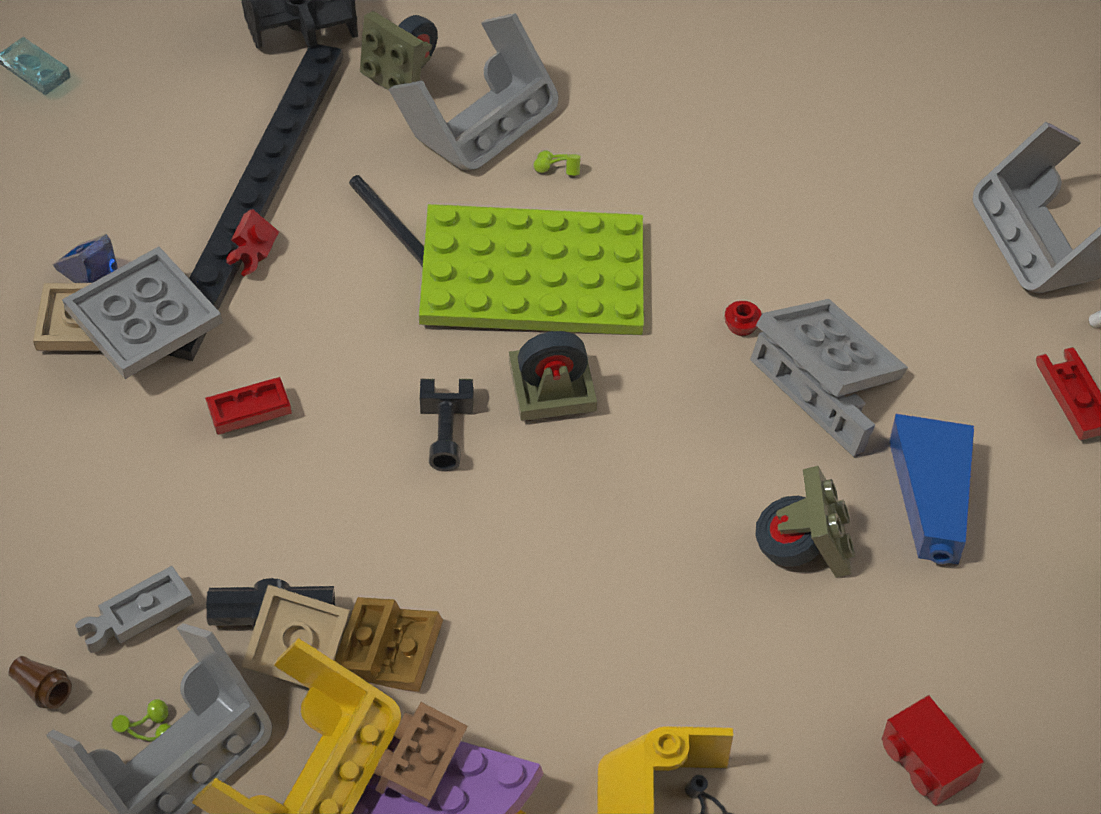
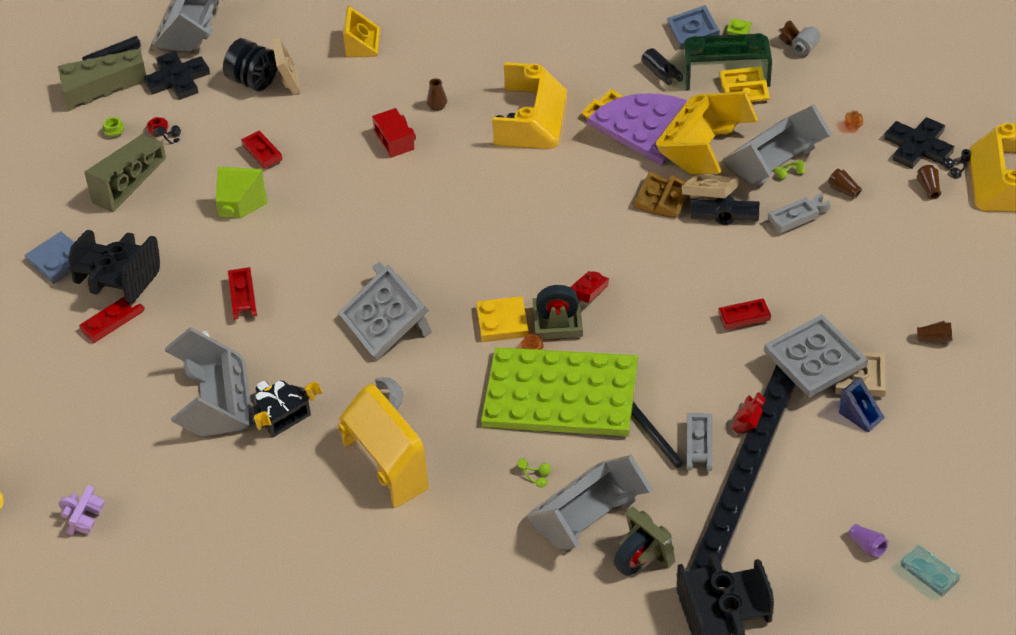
camera: 170 degrees left, 5 degrees down
(103, 91) = (870, 541): none -> medium lavender cone
(326, 207) = (699, 439): none -> light grey hinge
(422, 754) = (647, 122): medium nougat bracket -> none
(444, 453) = (626, 279): black bar -> none
(506, 429) = (590, 286): none -> red plate
(594, 338) = (532, 342): none -> clear orange plate
(642, 383) = (502, 319): none -> yellow plate
(741, 95) = (388, 441): none -> yellow windscreen
(742, 317) = (430, 352): red plate -> none
(783, 237) = (396, 392): none -> light grey piece
(802, 527) = (426, 222): olive plate -> none
(934, 480) = (344, 249): blue slope -> none
(941, 209) = (282, 405): none -> black torso

